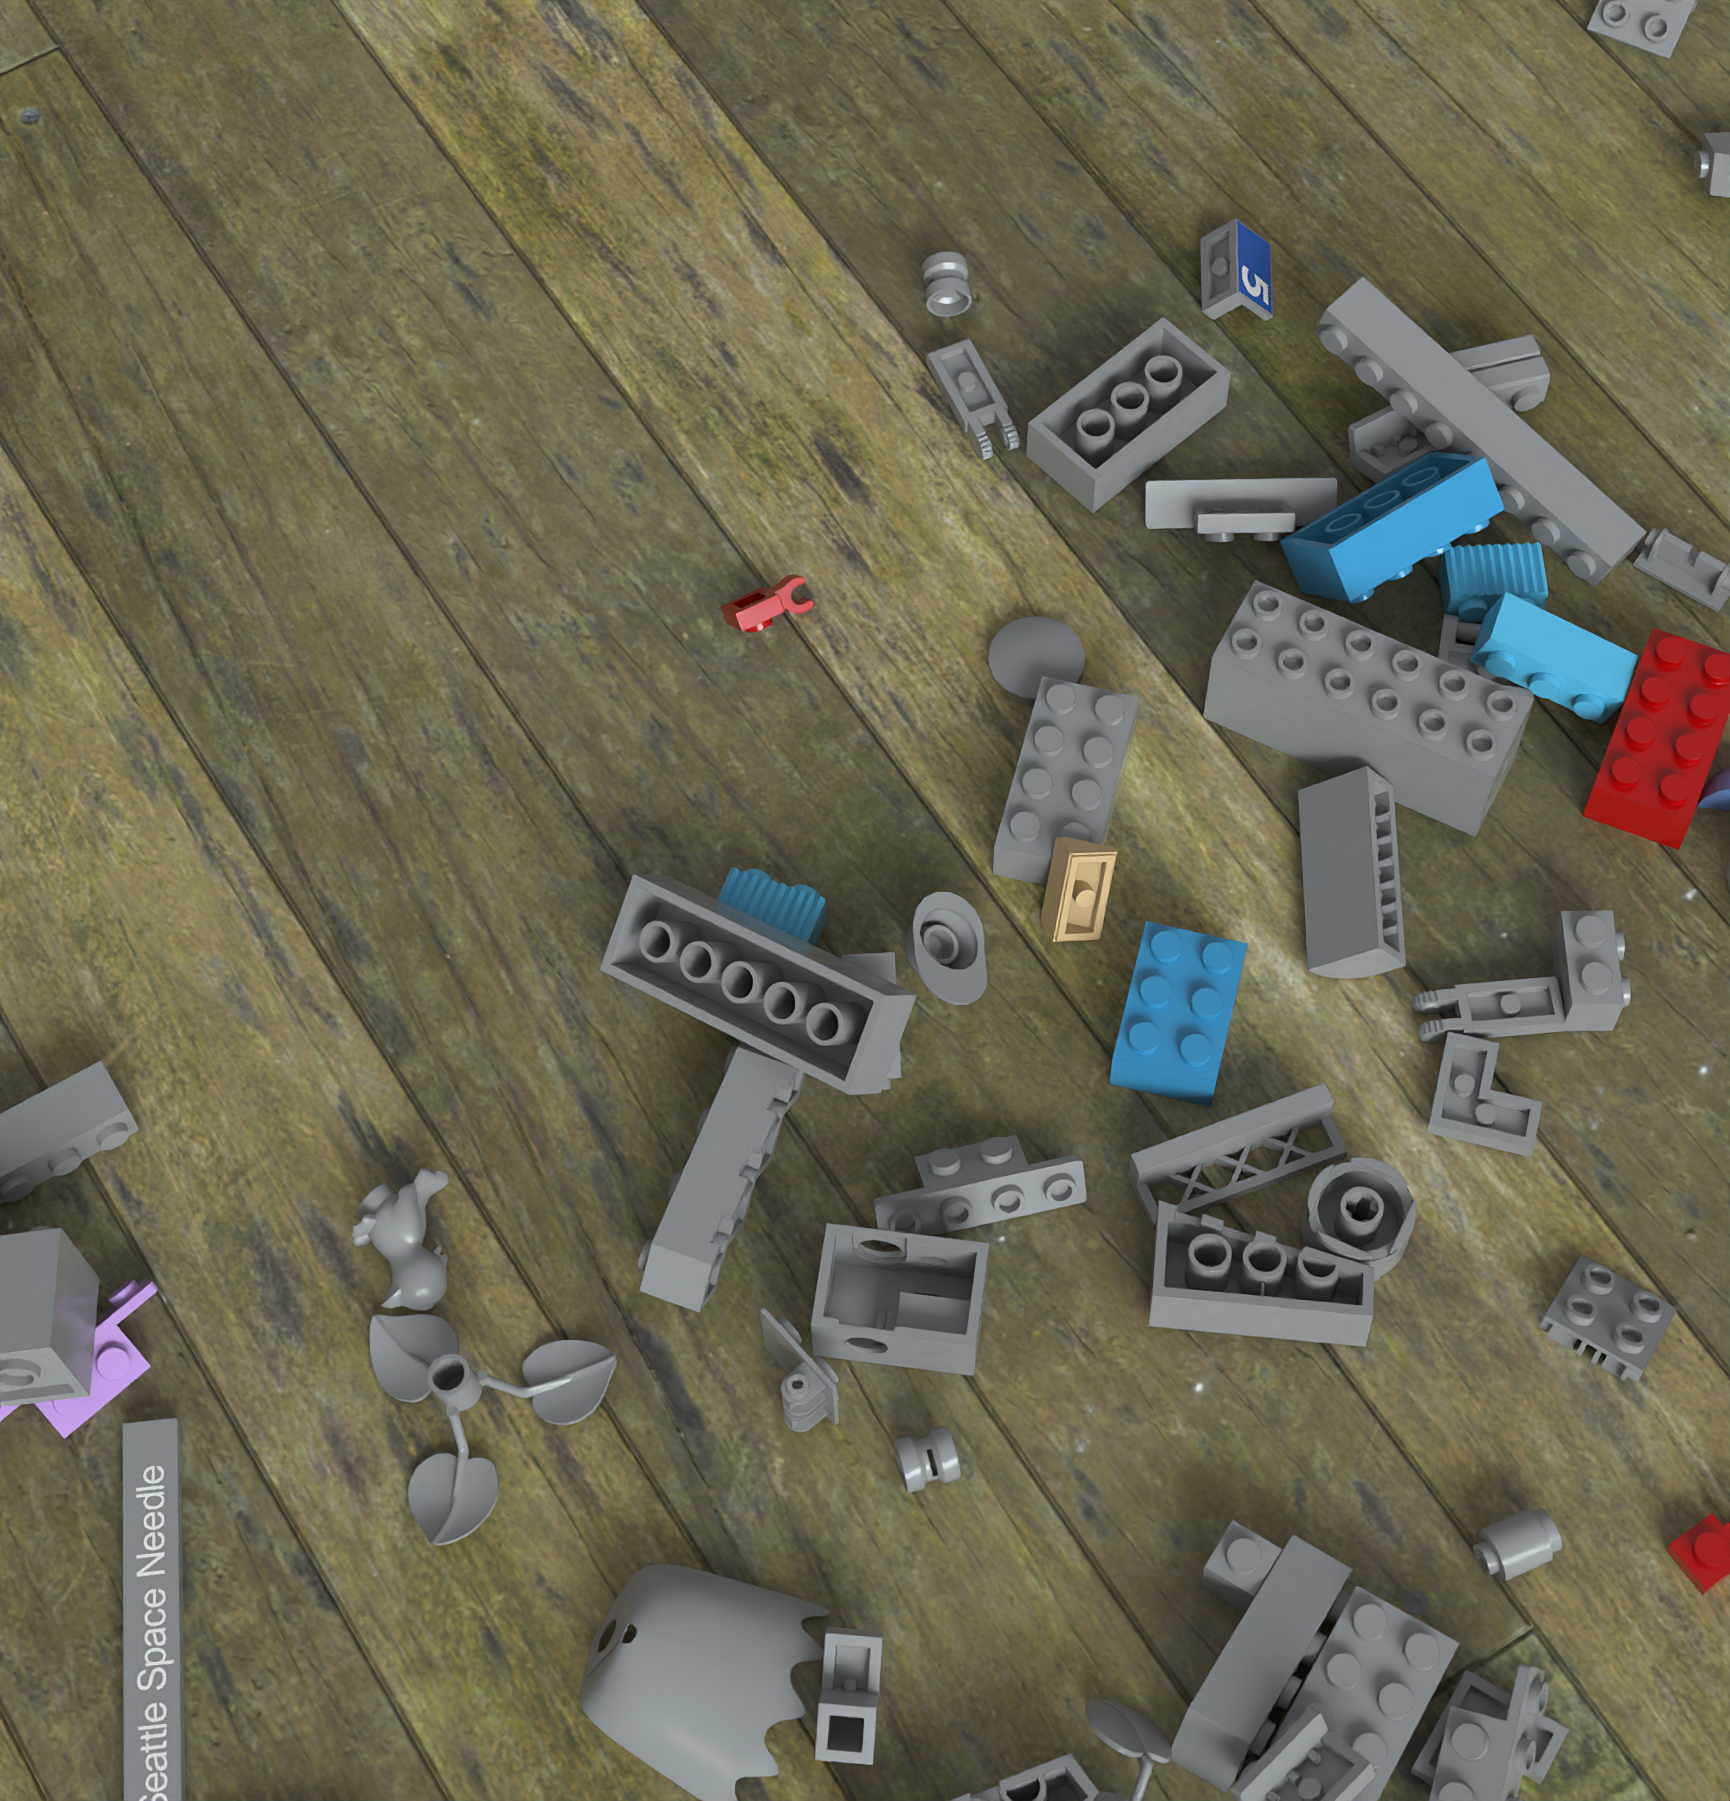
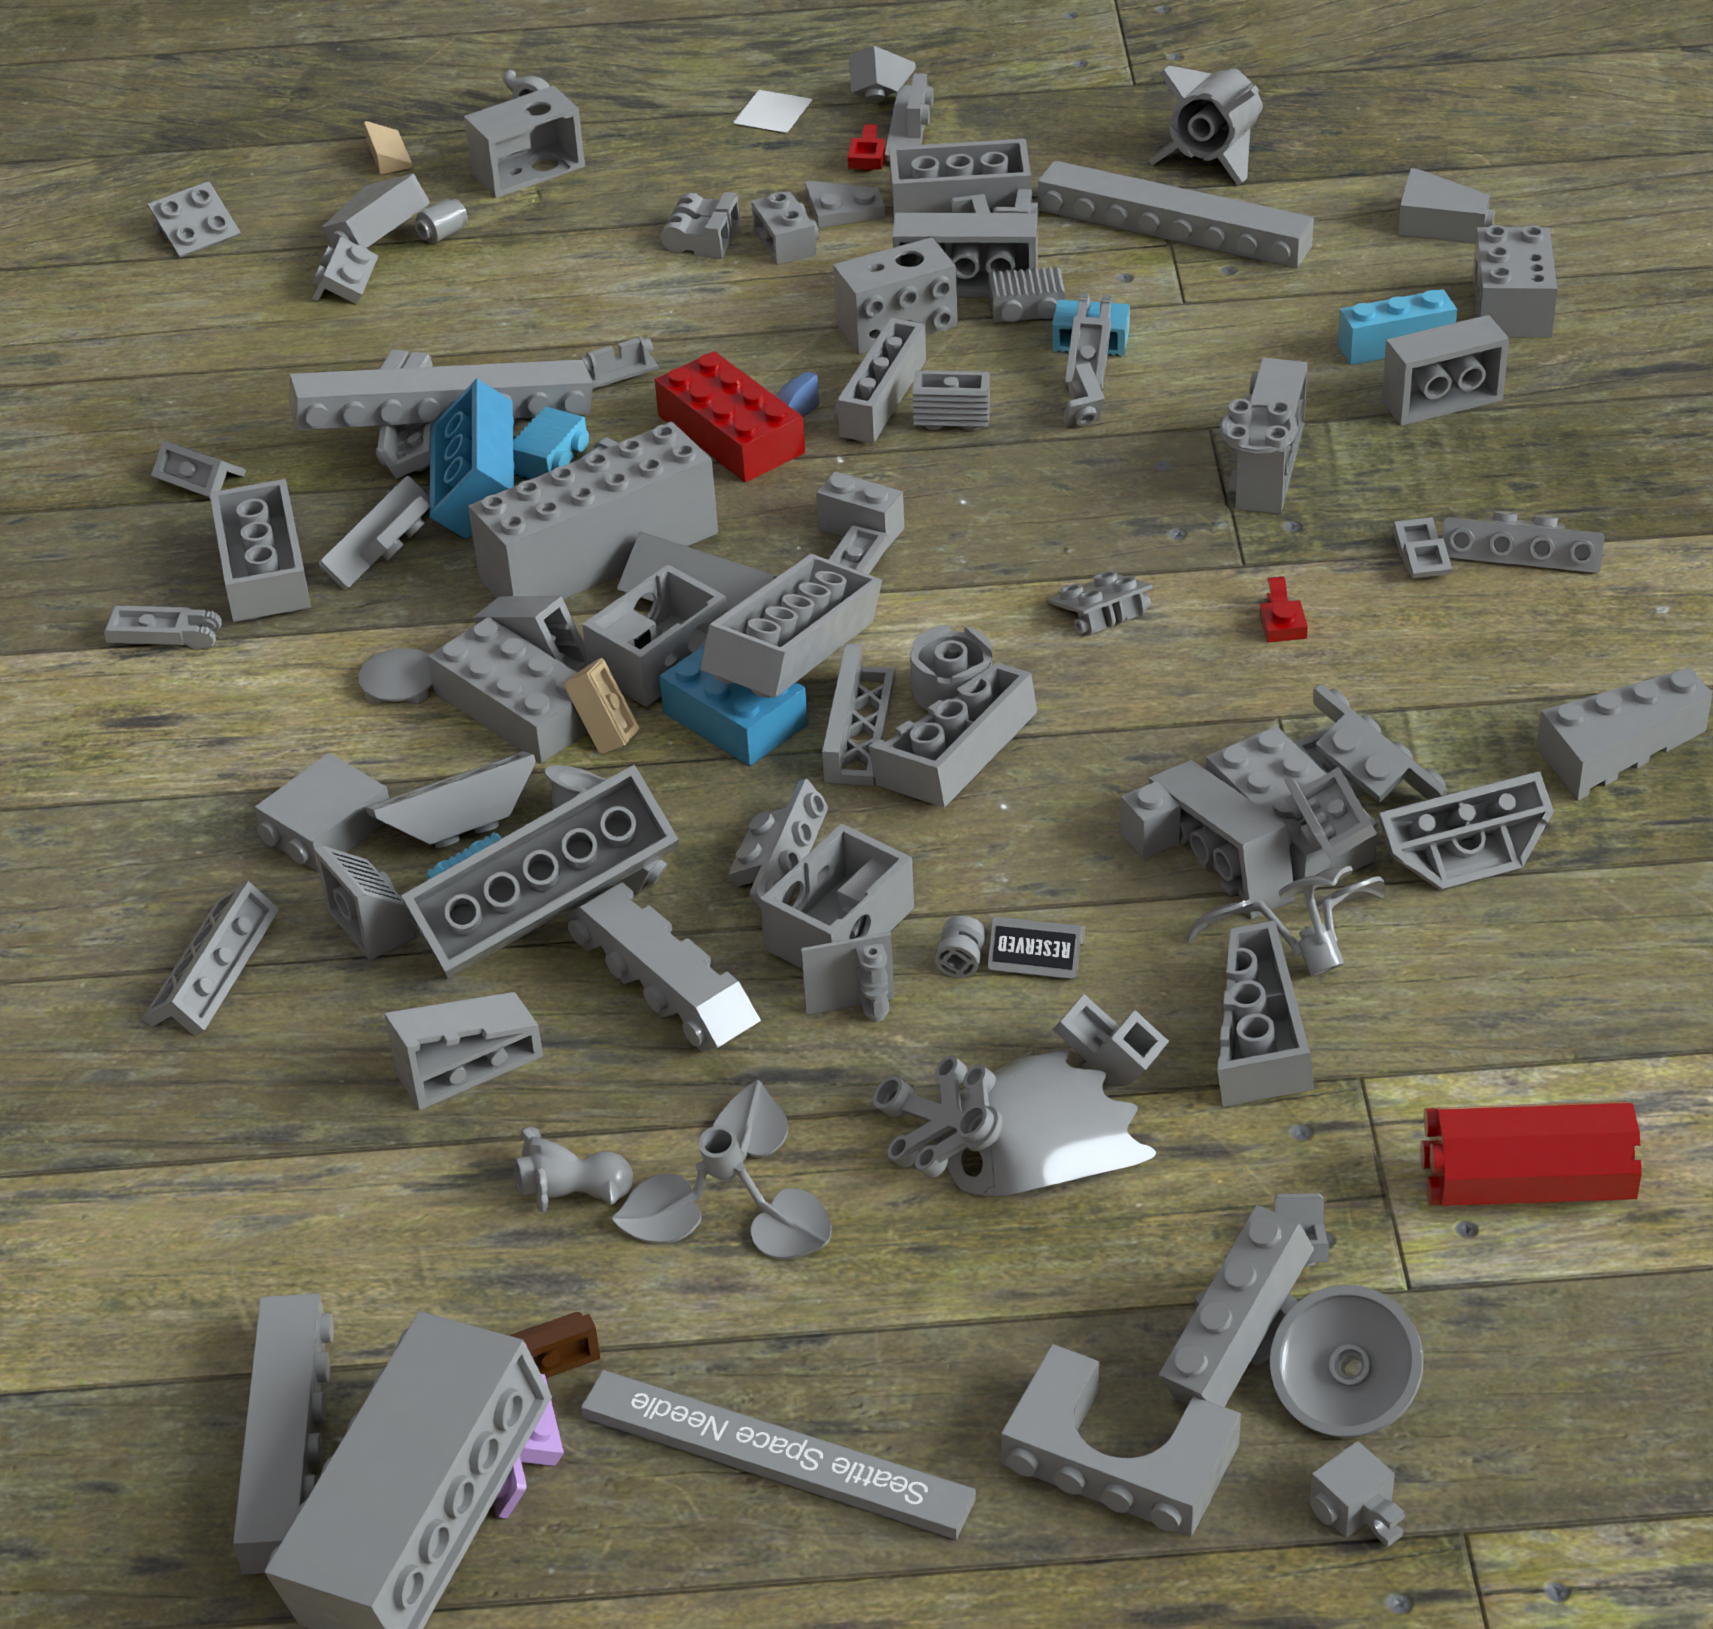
camera: 60 degrees left, 20 degrees down
(186, 1345) = (562, 1343): none -> reddish brown panel
(517, 1041) = (460, 1044): none -> light grey wedge
(532, 744) = (213, 959): none -> light grey fence
(611, 1624) = (975, 1127): none -> light grey plant
(666, 826) = (363, 902): none -> light grey slope
(757, 608) = (223, 793): plate -> none
(780, 716) = (320, 810): none -> light grey brick
(851, 828) = (458, 802): none -> light grey wedge
(946, 284) = (52, 601): light grey wheel -> none
(981, 1536) = (1035, 947): none -> panel
(1158, 758) = (541, 622): none -> light grey slope
(1214, 884) = (646, 646): none -> light grey piece
(1287, 1015) = (790, 625): none -> light grey brick
(1470, 1110) = (919, 598): light grey plate -> none
(1517, 1544) = (1222, 692): light grey brick -> none
(1554, 658) = (613, 424): medium azure brick -> none
(1662, 202) = (344, 270): none -> light grey bracket

